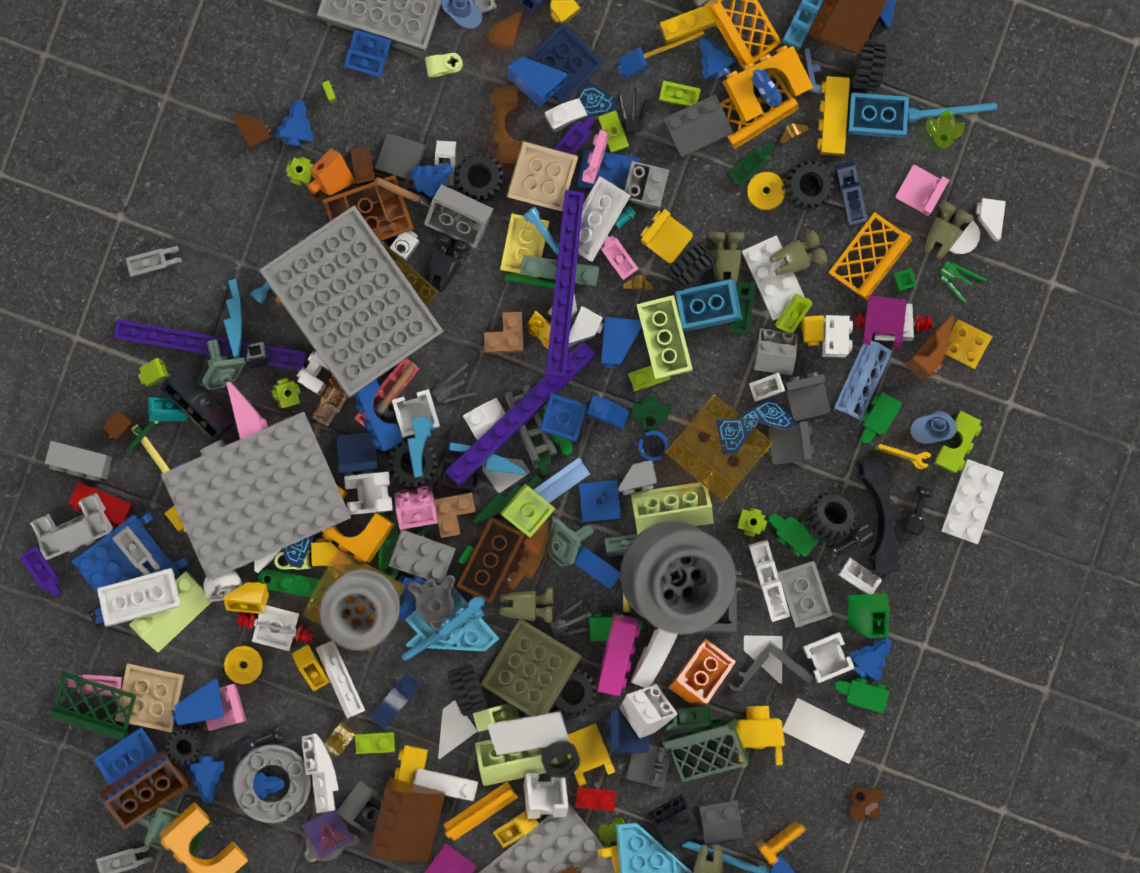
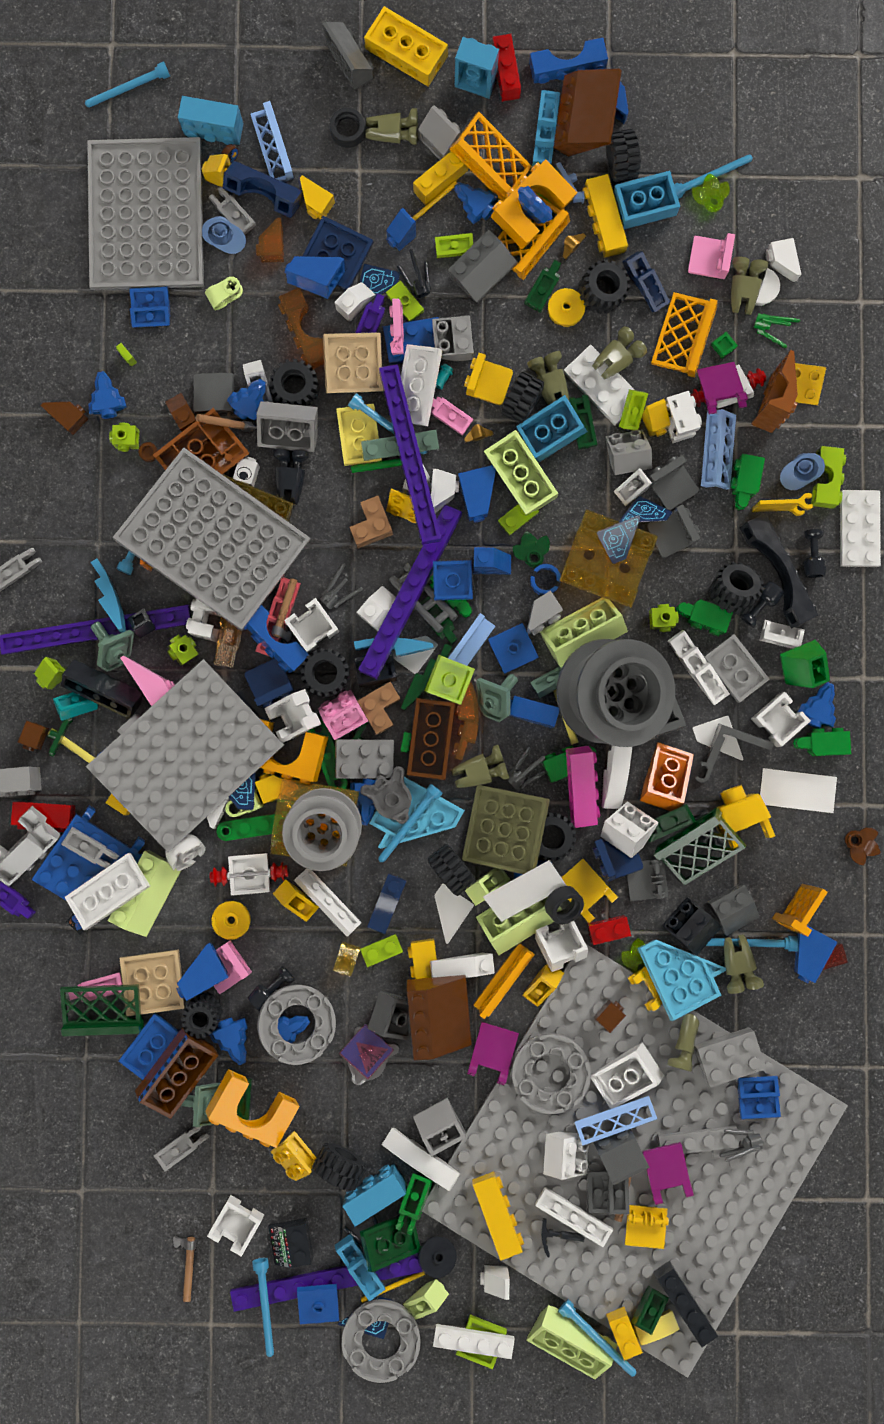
camera: 20 degrees left, 0 degrees up
(247, 598) = (212, 856): yellow slope -> none
(323, 775) = (338, 992): white slope -> none
(330, 174) = (152, 428): orange torso -> none
(422, 430) = (322, 636): dark azure slope -> none
(462, 615) = (422, 800): dark azure hinge -> none

